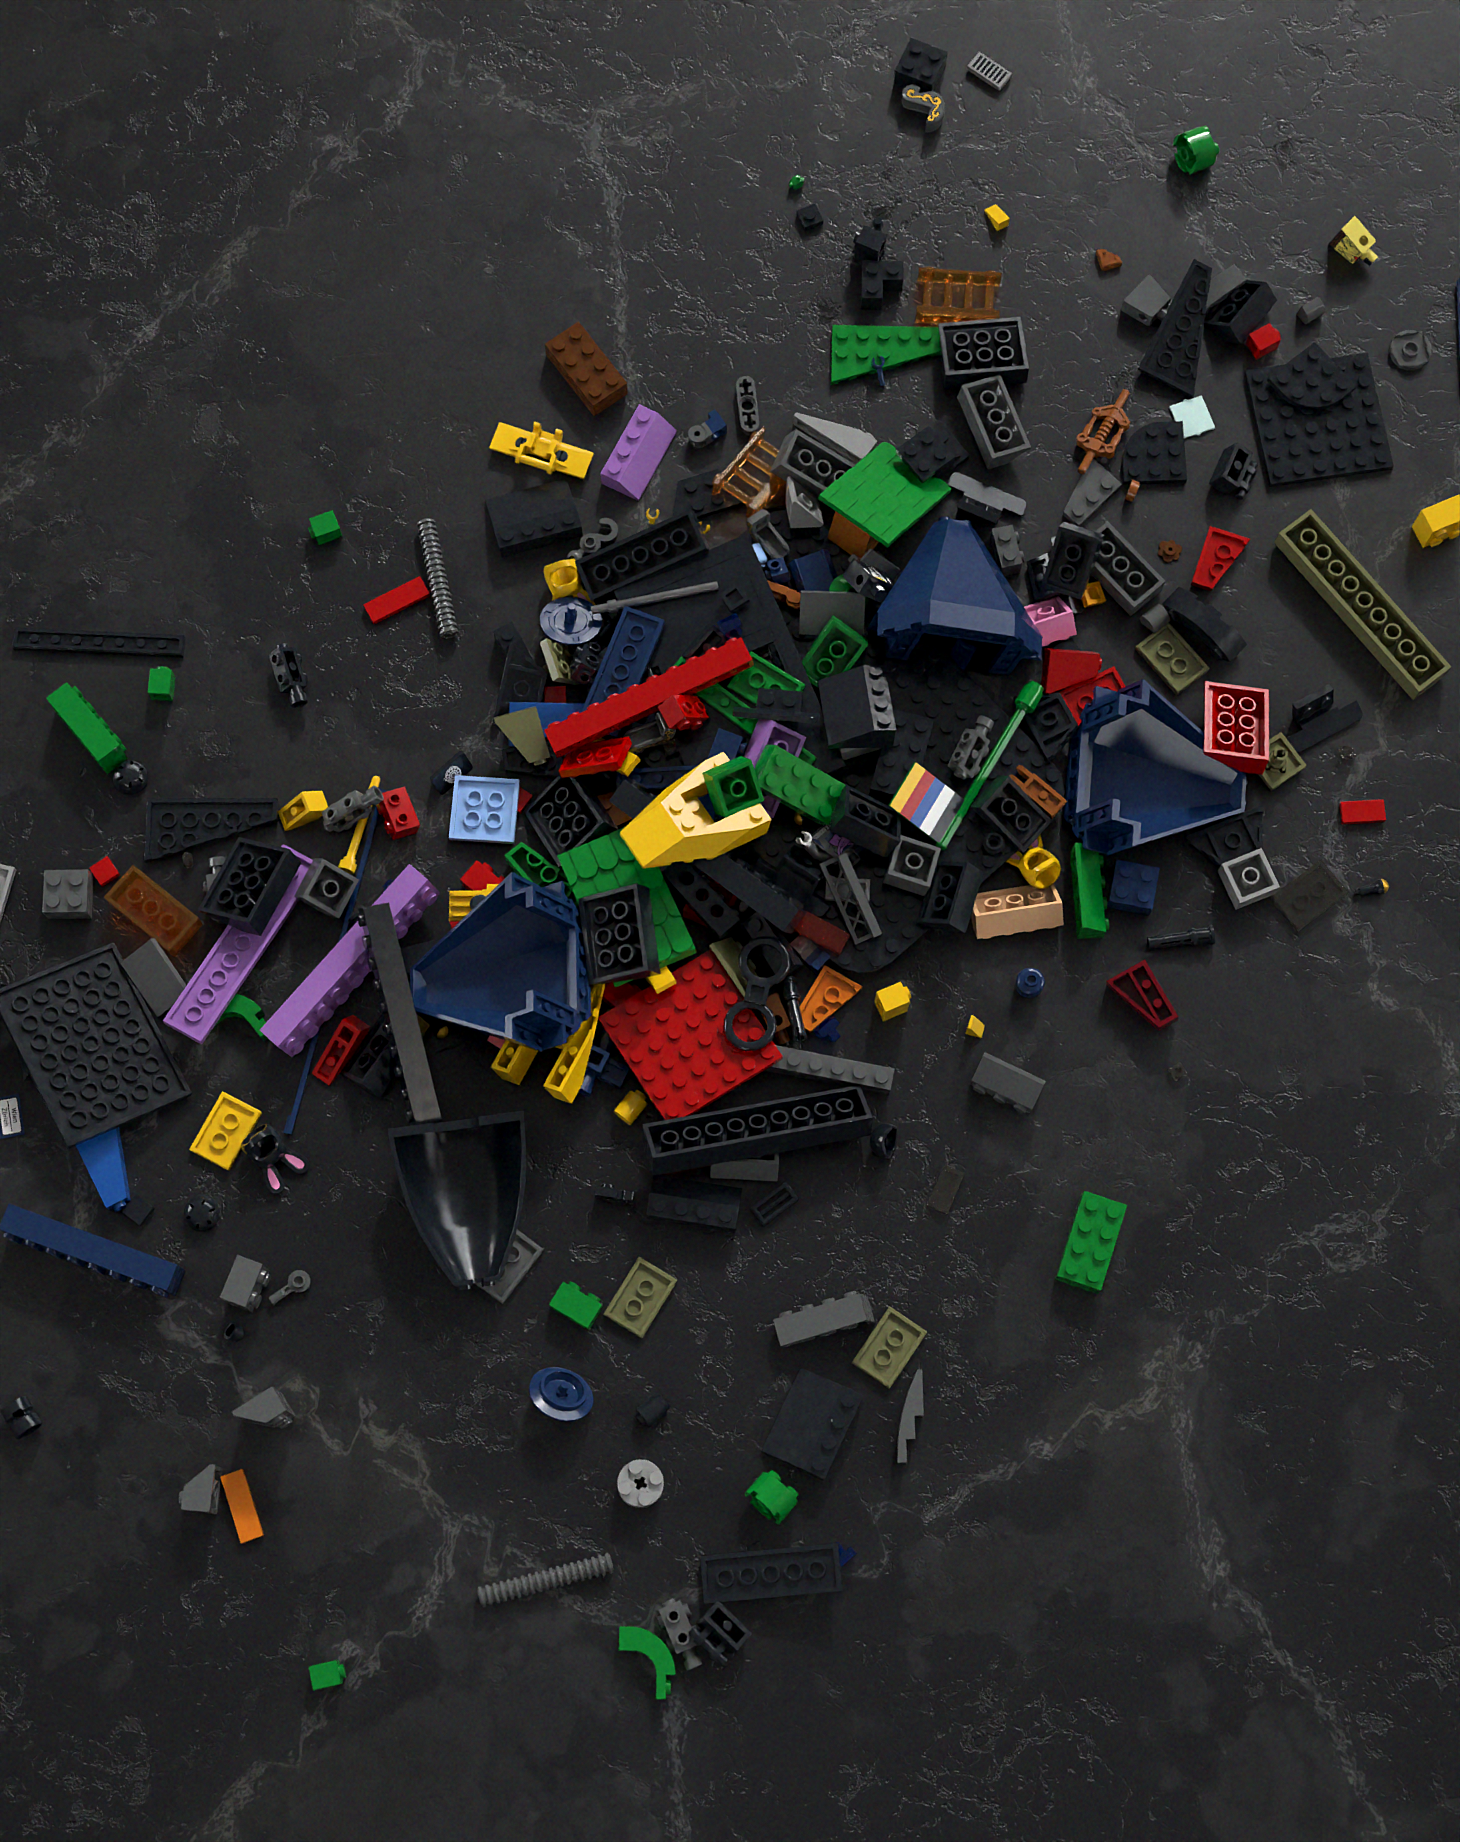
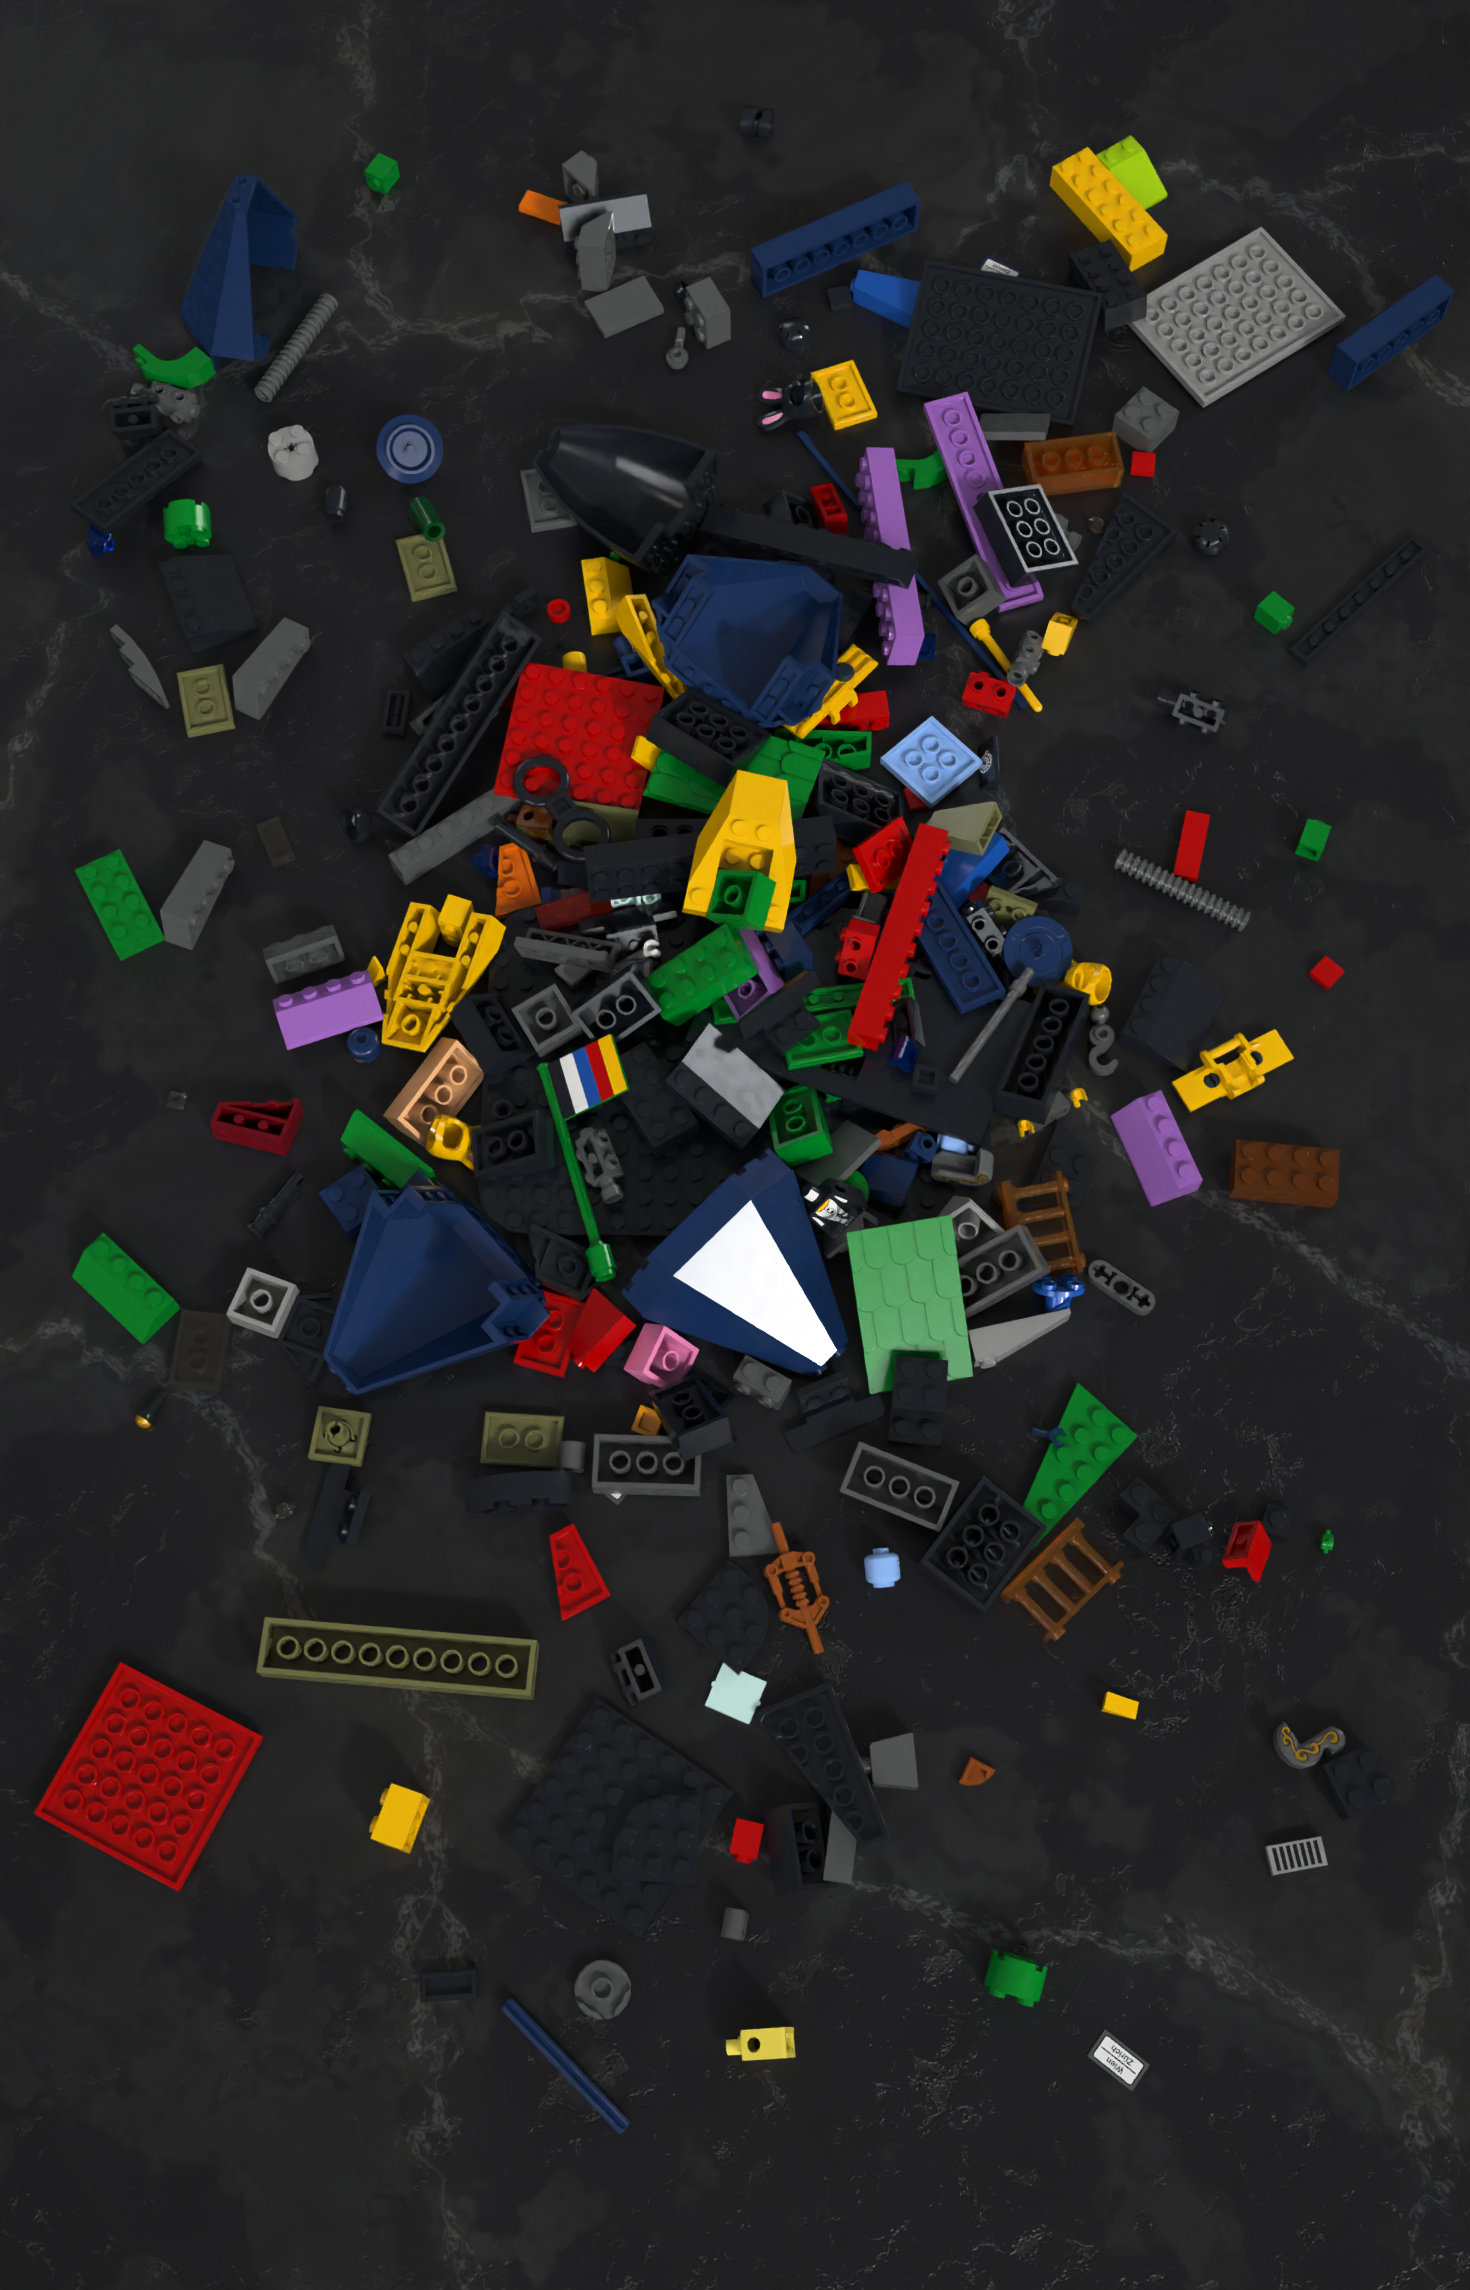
camera: 135 degrees right, 5 degrees down
(88, 727) = (1281, 526): green brick -> none
(228, 1440) = (630, 219): none -> slope
(286, 1365) = (624, 307): none -> dark grey tile
(417, 450) = (1326, 973): none -> red tile
(533, 1672) = (246, 230): none -> dark blue piece
(553, 1139) = (605, 587): none -> yellow slope
(576, 1305) = (465, 514): green brick -> none
(591, 1168) = (558, 610): none -> red tile
(606, 1326) = (427, 519): none -> dark green brick
(708, 431) = (1123, 1230): leg -> none
(782, 425) = (1058, 1290): none -> blue plate
(845, 215) = (1248, 1548): none -> red panel
(961, 972) = (429, 985): none -> yellow wedge
(1031, 1024) = (327, 1009): none -> medium lavender slope
(1032, 1197) = (196, 894): none -> dark grey wedge
(1041, 793) = (510, 1187): dark orange hinge -> none
(1047, 395) = (882, 1568): none -> light blue head
(1132, 490) = (712, 1556): dark orange tile -> none
(1167, 555) = (622, 1547): reddish brown plant -> none
(1180, 78) = (1118, 2060): none -> sticker
(1237, 726) = (400, 1414): red slope -> none
(1321, 976) = (124, 1289): none -> green slope
(1362, 811) = (222, 1470): red tile -> none

